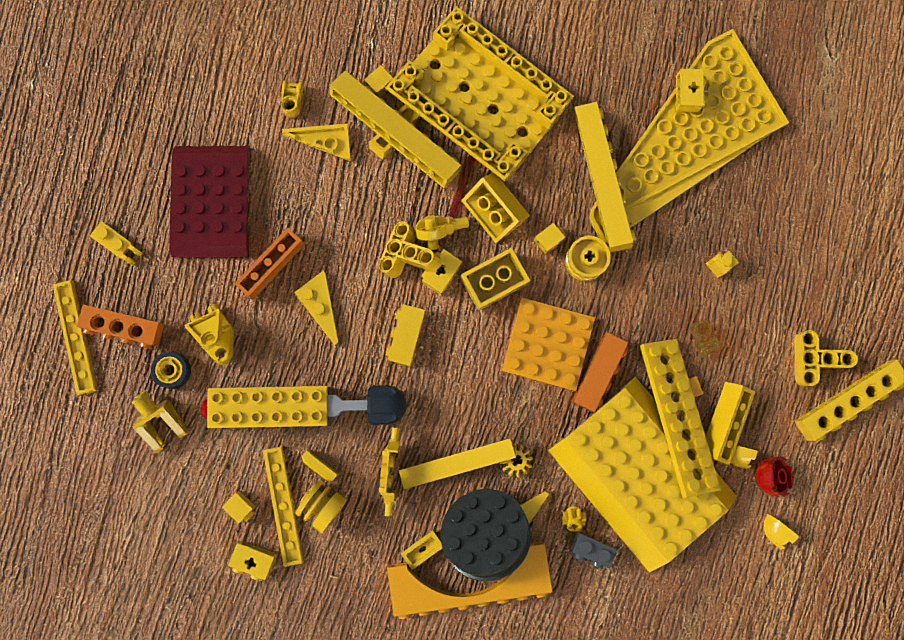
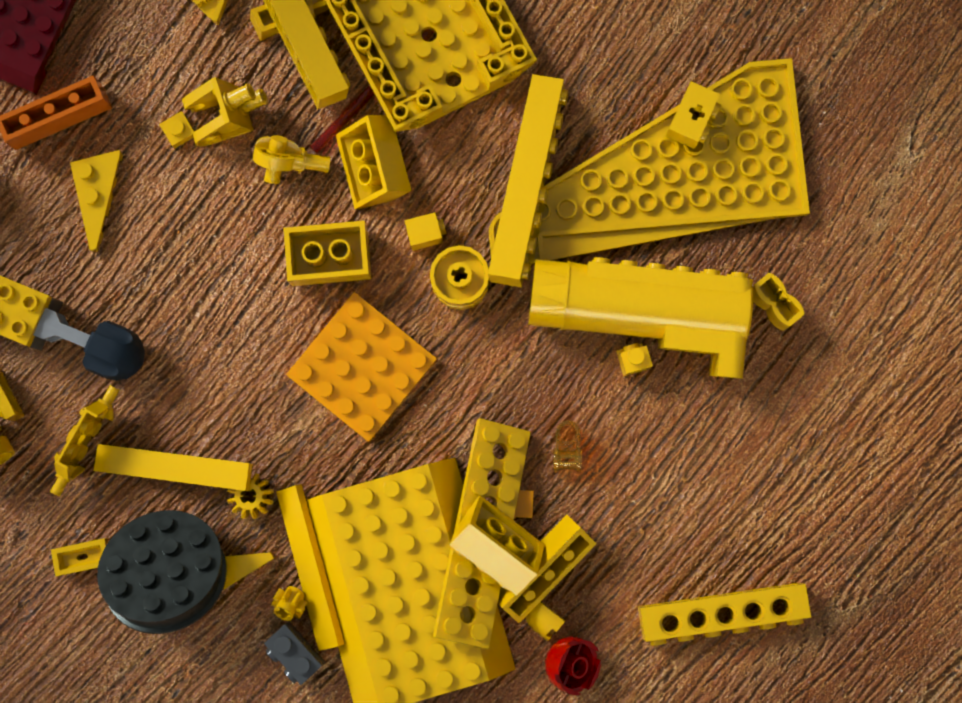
camera: 35 degrees right, 0 degrees up
(355, 240) = (177, 129): none -> yellow plate
(388, 206) = (234, 110): none -> yellow piece
(405, 335) = (184, 277): yellow brick -> none
(407, 248) = (227, 166): yellow beam -> none
(415, 596) = (44, 608): light orange arch -> none
(440, 282) = (279, 211): yellow brick -> none
(576, 489) = (310, 567): none -> yellow tile
(599, 372) = (408, 431): orange brick -> none
(698, 421) = (498, 546): none -> yellow slope
(731, 218) = (675, 306): none -> yellow piece
(797, 189) = (780, 307): none -> yellow brick
(816, 356) = (701, 538): yellow beam -> none

